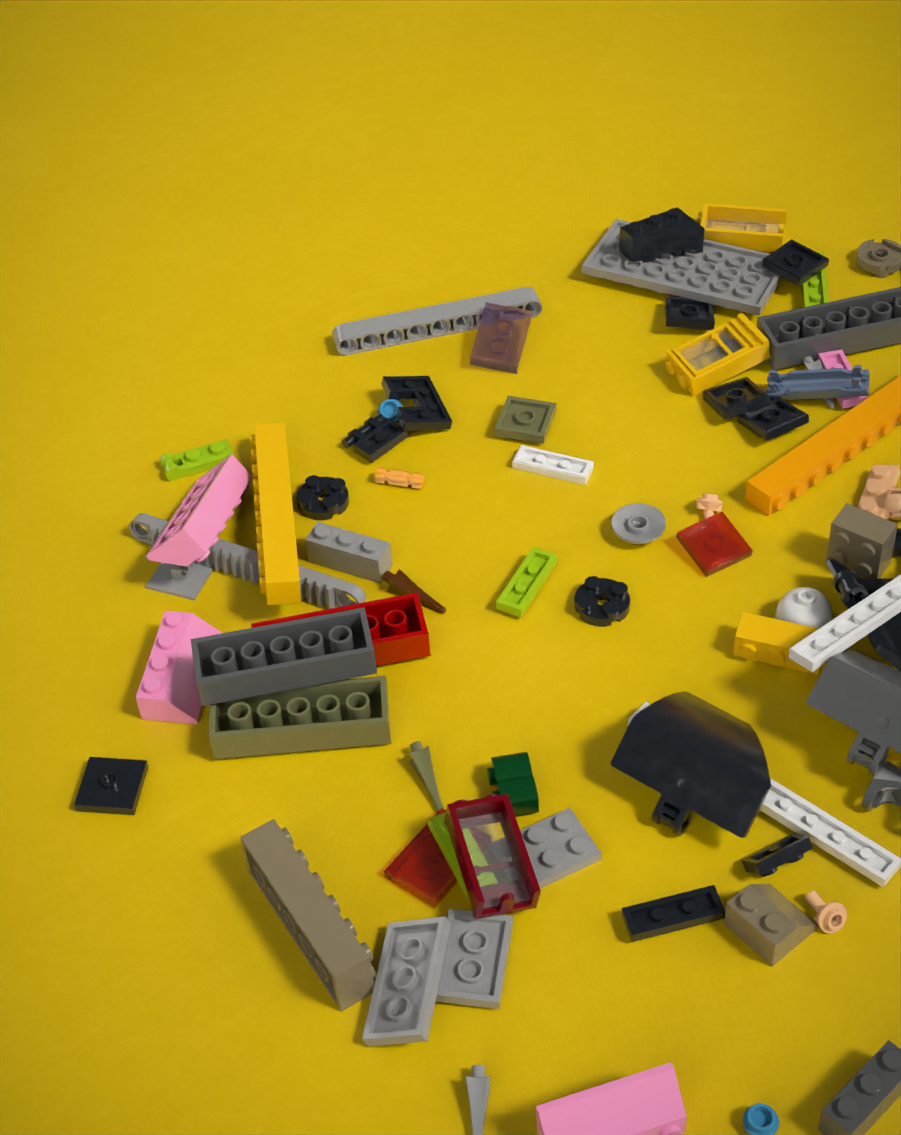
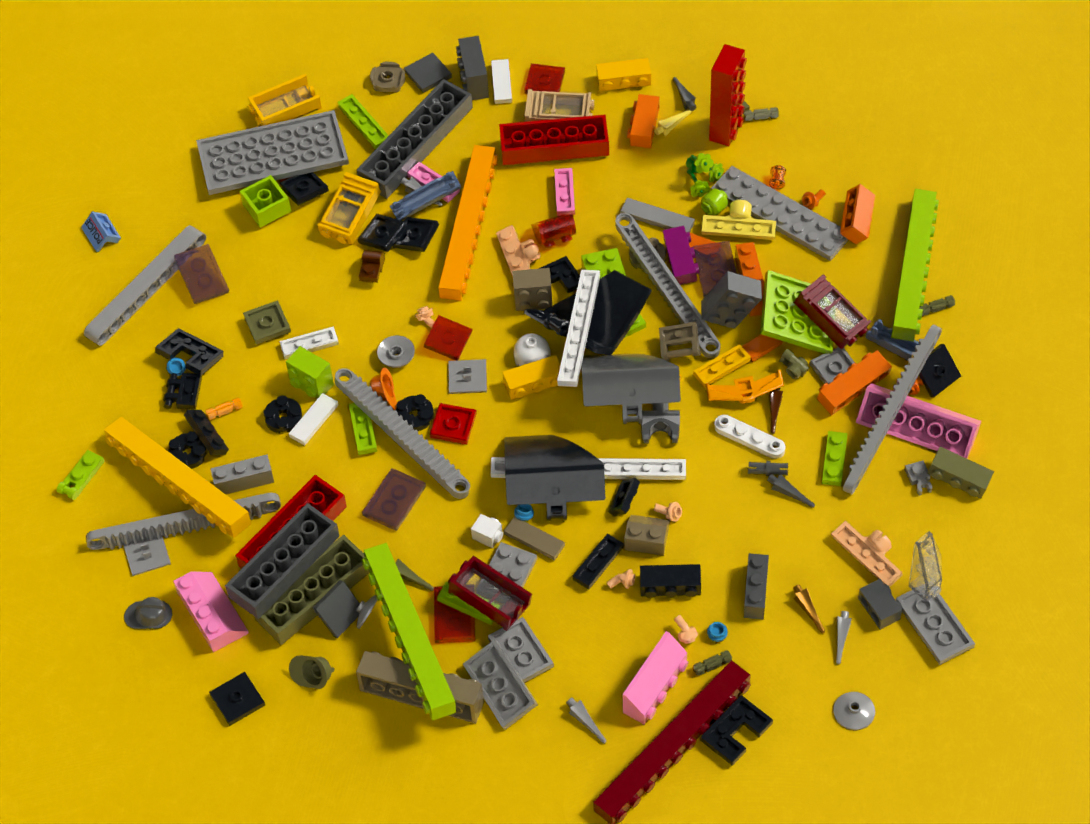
camera: 40 degrees left, 10 degrees up
(120, 636) = (148, 614): none -> dark grey piece
(202, 515) = (133, 508): bright pink slope -> none
(212, 808) = (310, 671): none -> olive piece
(305, 757) = (337, 609): none -> dark grey tile
(334, 779) = (364, 610): none -> light grey dish
(337, 836) = (409, 632): none -> lime brick
(356, 489) = (206, 432): none -> black plate
(401, 585) = (294, 475): reddish brown piece -> none
(445, 251) = (100, 230): none -> medium blue panel
(455, 508) = (282, 405): none -> black plate
(483, 542) = (313, 419): none -> white tile
(491, 680) = (394, 499): none -> tile
(514, 777) = (460, 547): dark green brick -> none
(516, 489) = (309, 372): none -> lime brick
(564, 617) = (402, 433): none -> light grey gear
(564, 783) = (487, 531): none -> white brick
(588, 552) = (384, 387): none -> orange piece
(617, 832) = (534, 538): none -> dark tan tile
(630, 791) = (524, 512): none -> dark azure plate
(632, 304) = (265, 201): none -> lime brick
(637, 639) = (453, 423): none -> red tile
(661, 234) = (244, 139): black wedge -> none
(692, 961) = (626, 578): none -> light nougat plate
(693, 422) = (371, 265): none -> reddish brown brick
(702, 599) = (467, 376): none -> light grey piece
(713, 1094) = (688, 633): none -> light nougat plate
(750, 1004) = (670, 580): none -> black brick
(795, 262) = (342, 112): black plate -> none

